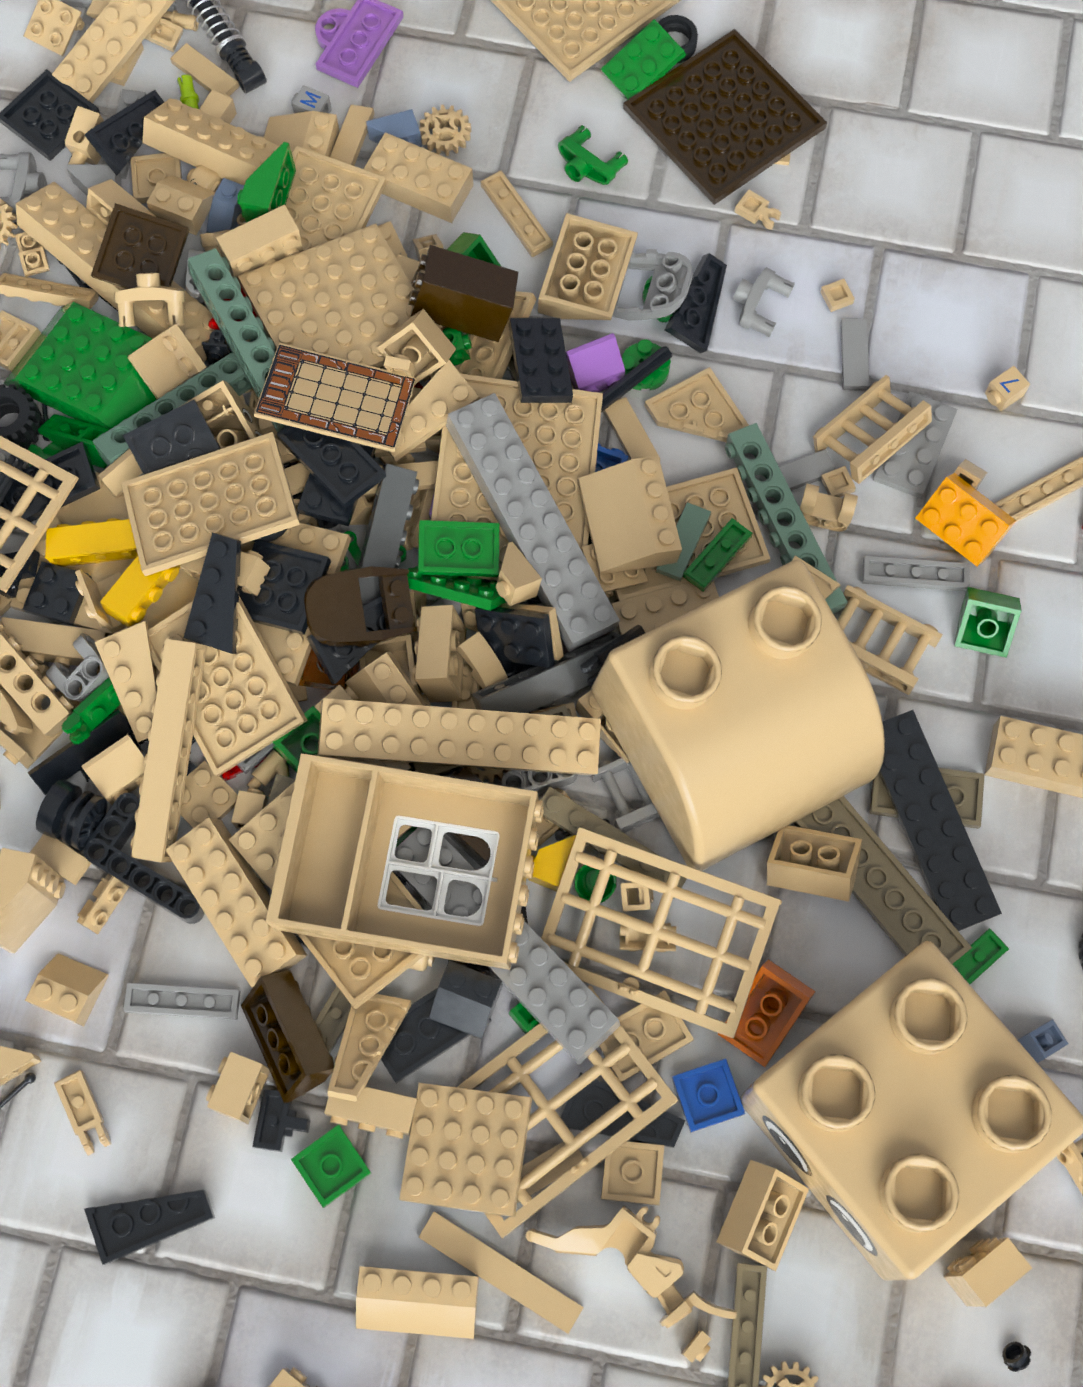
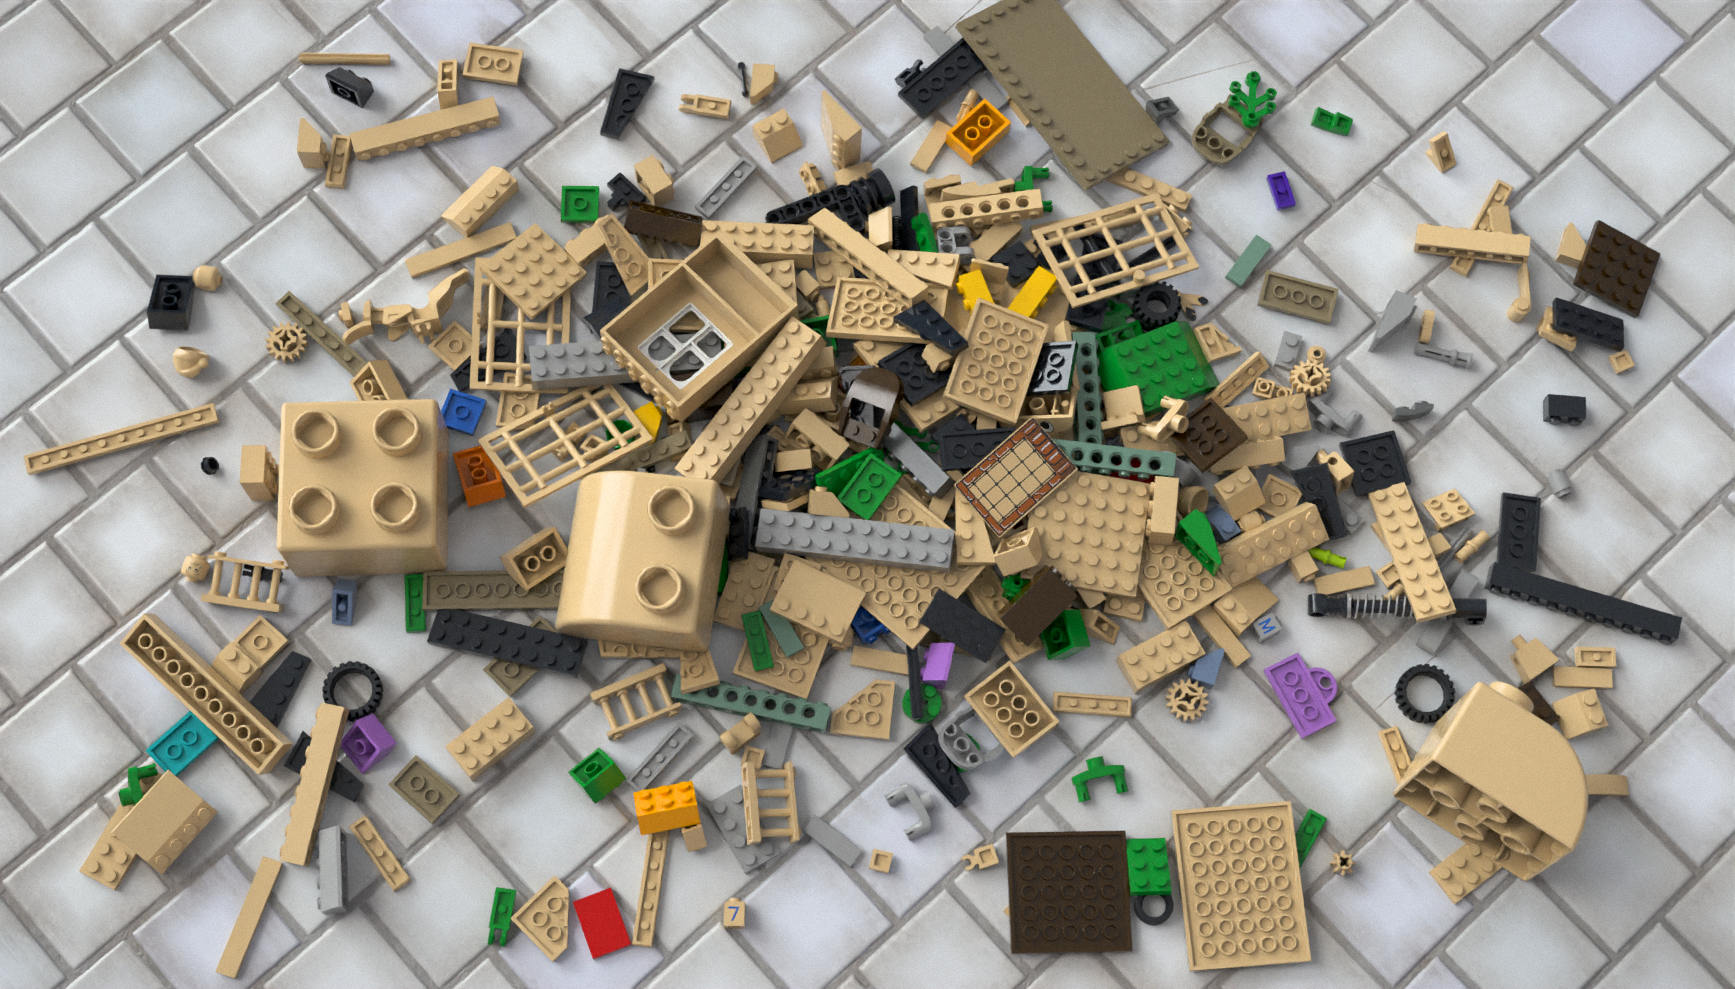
camera: 120 degrees right, 0 degrees up
(400, 364) = (1011, 530): tan plate -> none

